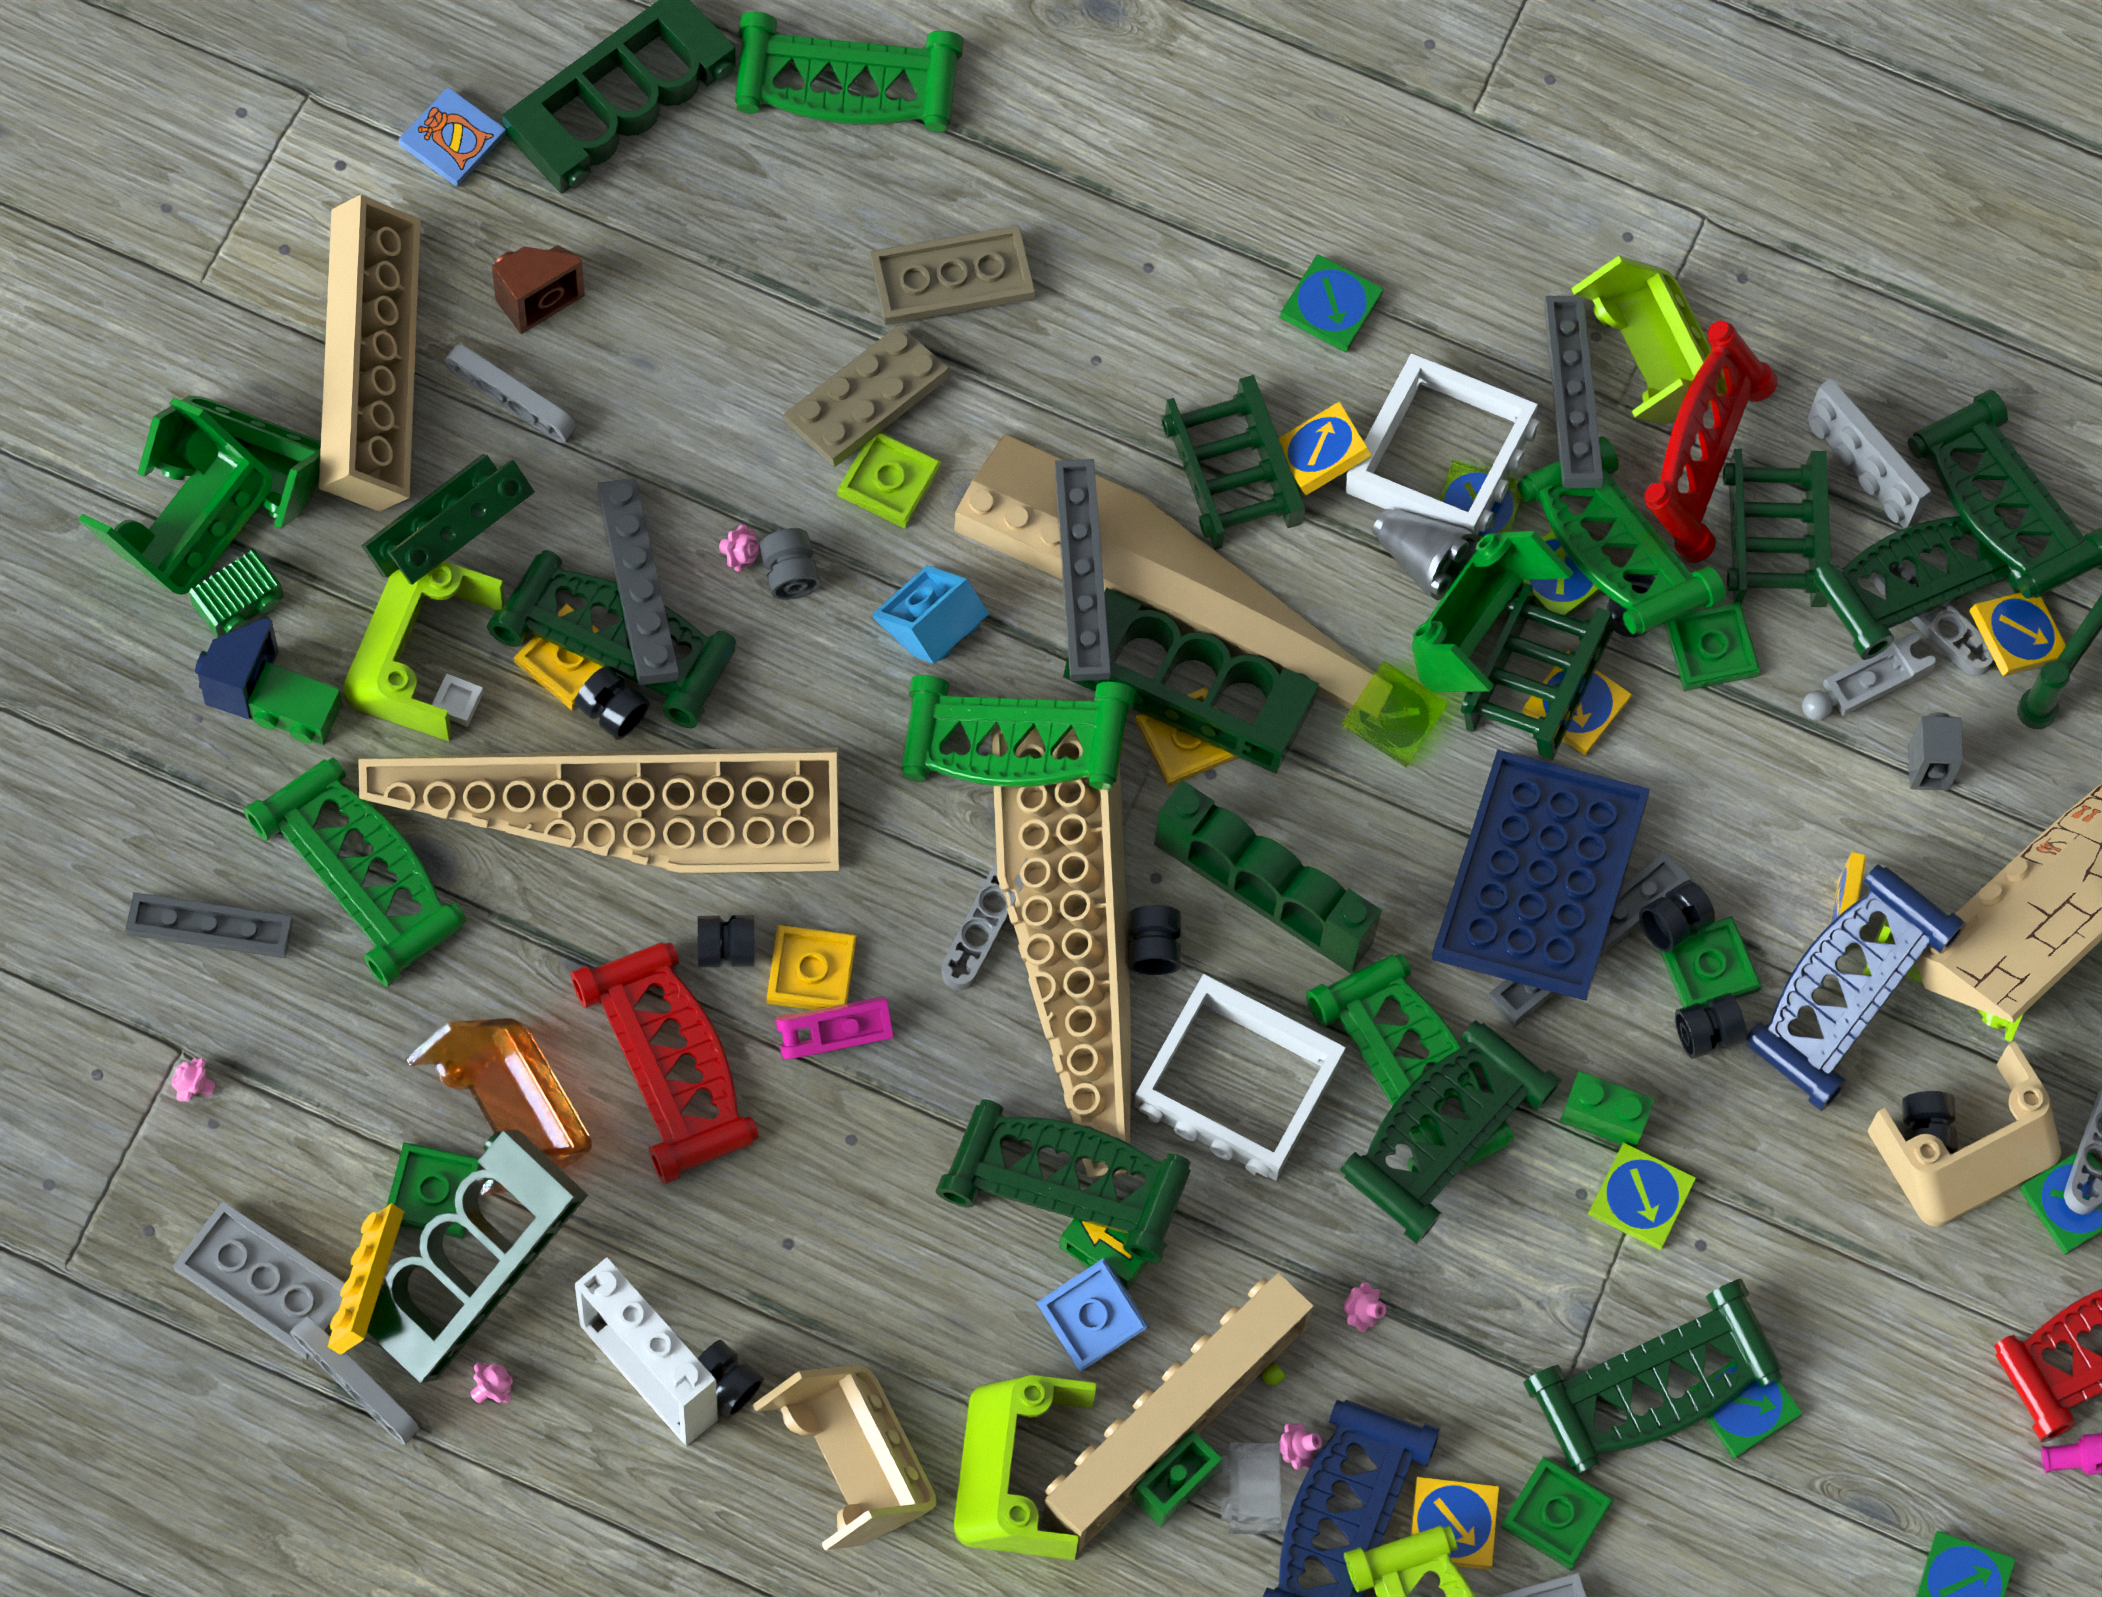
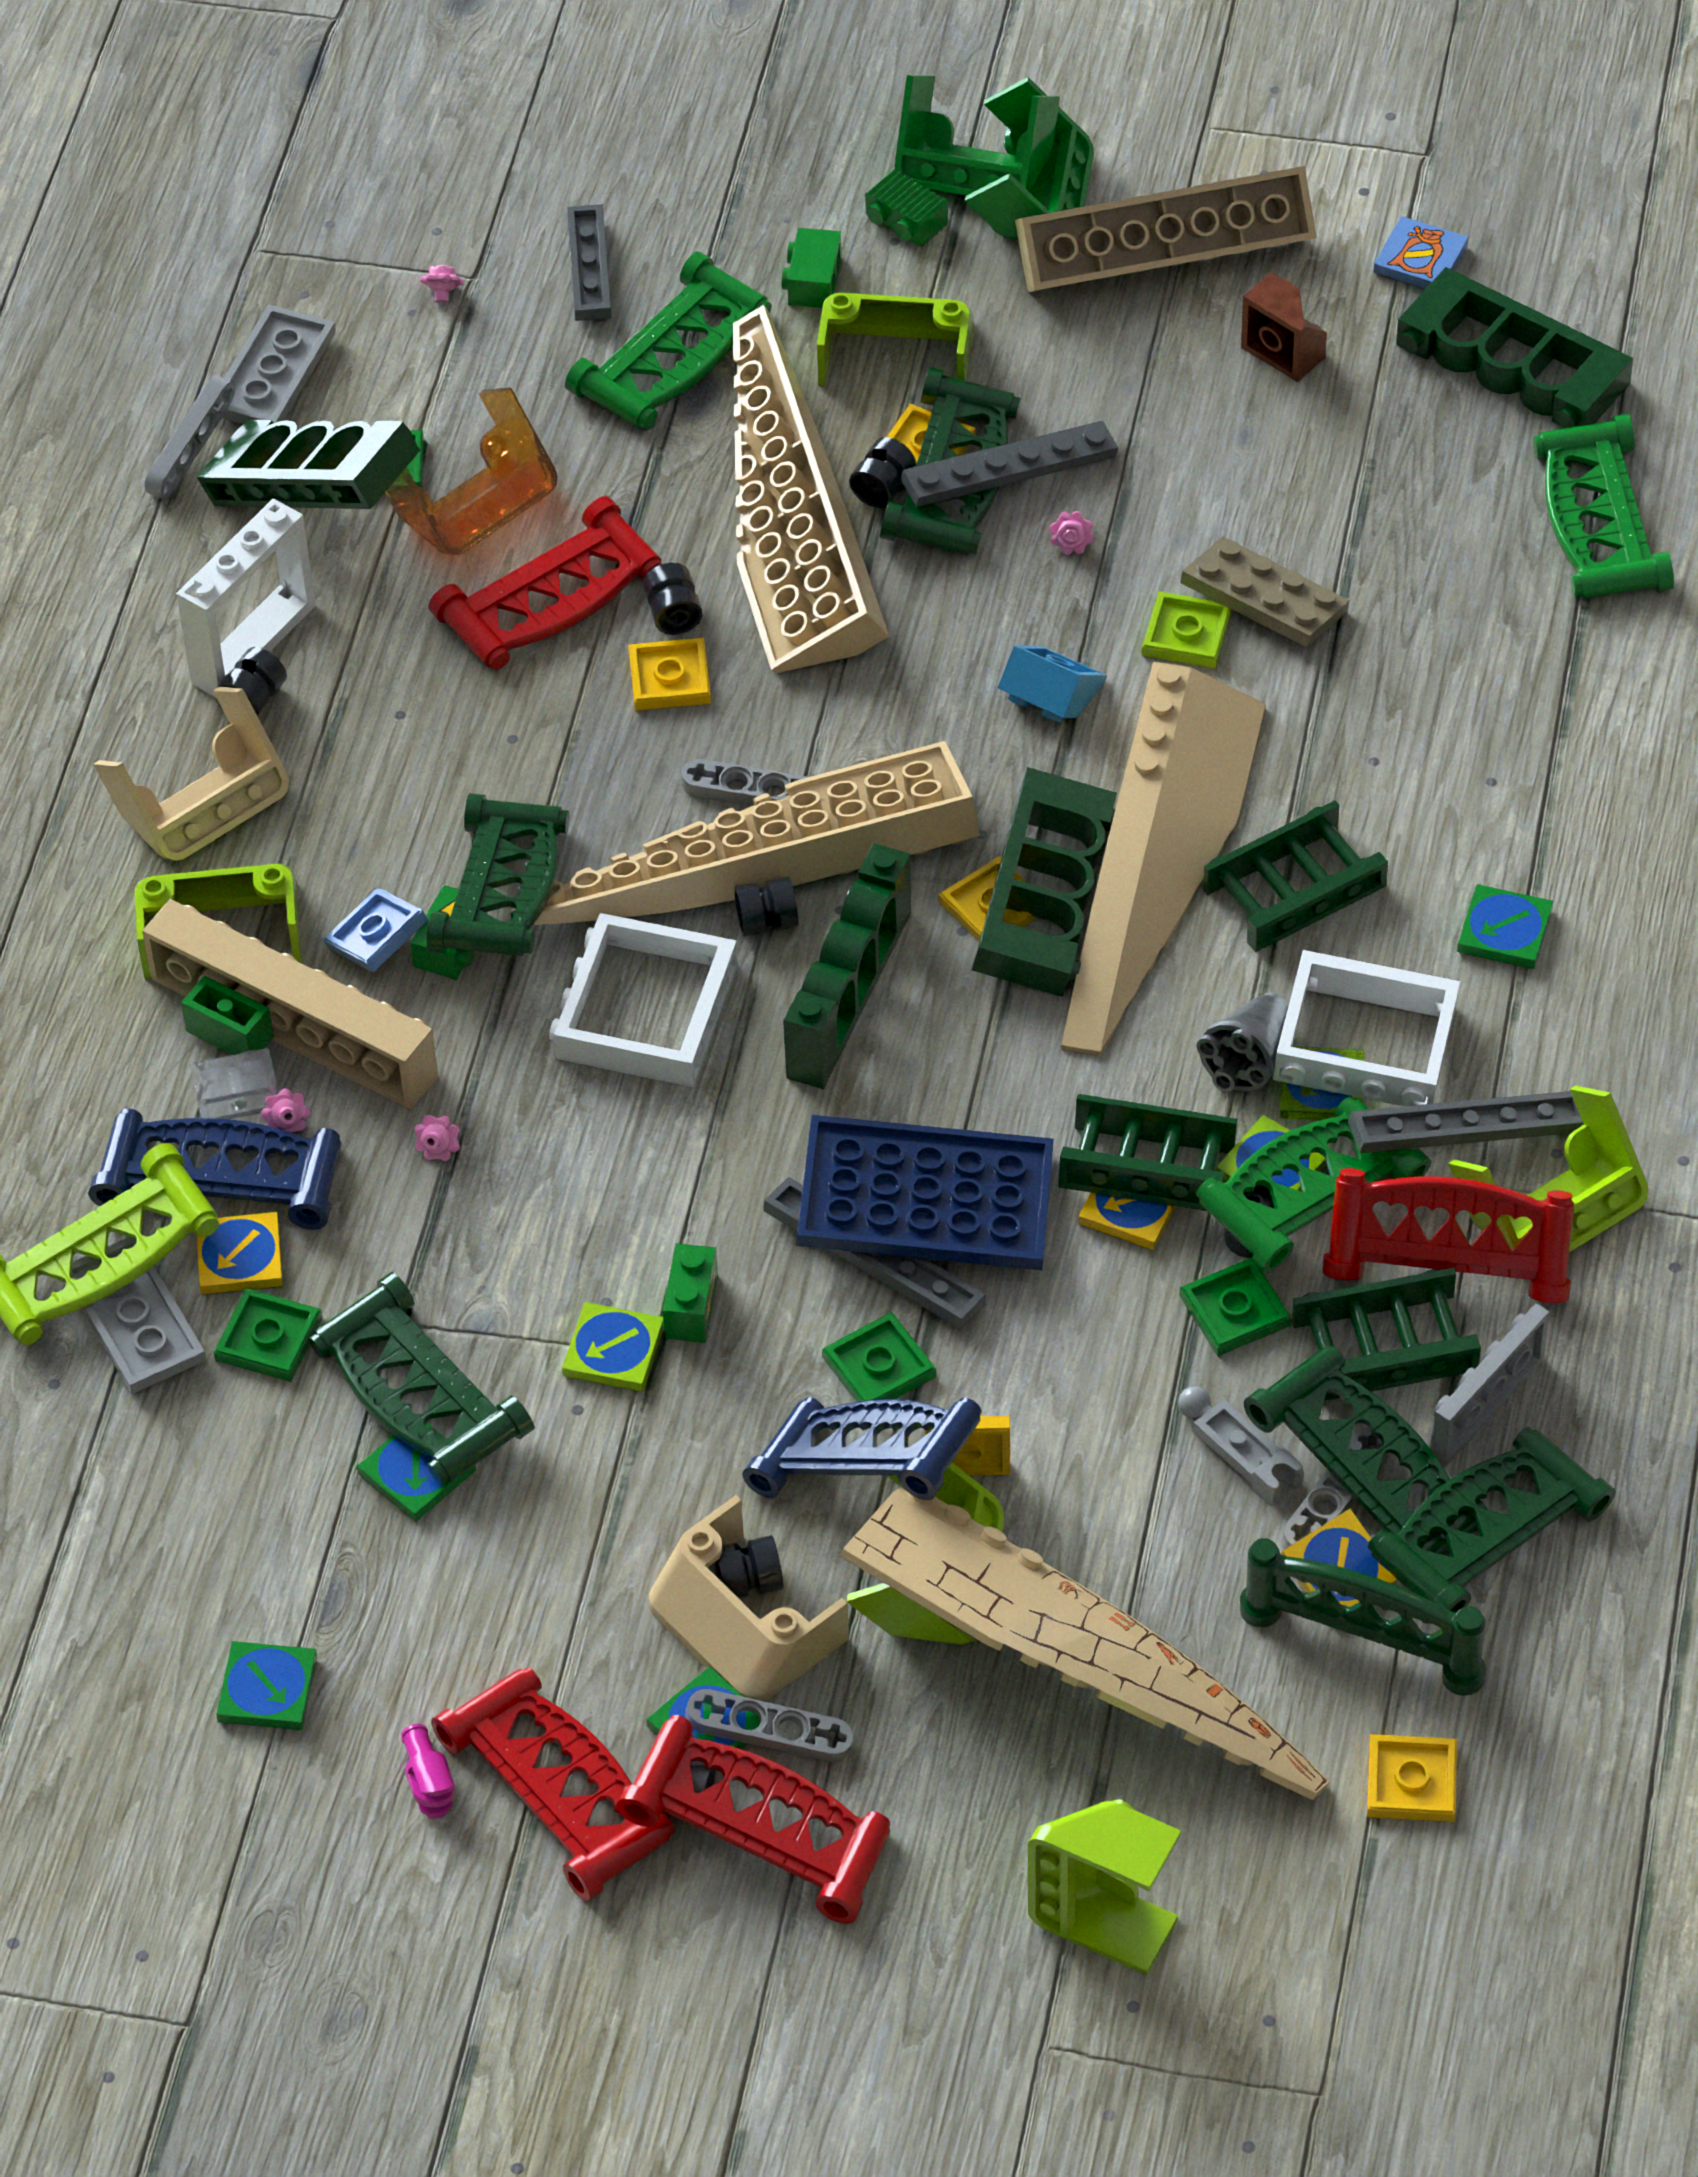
camera: 85 degrees right, 15 degrees down
(235, 665) = (832, 204): dark blue slope -> none
(366, 1278) = (262, 407): yellow plate -> none
(447, 518) = (1017, 311): dark green fence -> none
(458, 698) = (854, 374): white plate -> none
(492, 1383) = (212, 532): bright pink plant -> none
(510, 393) = (1170, 344): light grey beam -> none
(788, 556) = (1070, 564): dark grey wheel -> none
(835, 1027) = (612, 695): dark pink plate -> none
(937, 716) = (957, 784): green piece -> none
(952, 275) = (1417, 628): dark tan plate -> none
(1082, 570) = (1115, 751): dark grey plate -> none
(1273, 1375) = (357, 1088): lime piece -> none
(1323, 448) = (1329, 933): tile -> none
(1357, 1002) = (747, 1075): green piece -> none
(1394, 713) = (1069, 1055): clear neon green tile -> none
(1409, 1194) = (699, 1208): dark green piece -> none
(1473, 604) = (1176, 1066): green windscreen -> none
(1677, 916) = (899, 1297): black wheel -> none
(1711, 1025) = (805, 1362): black wheel -> none
(1935, 752) = (1165, 1497): dark grey brick -> none

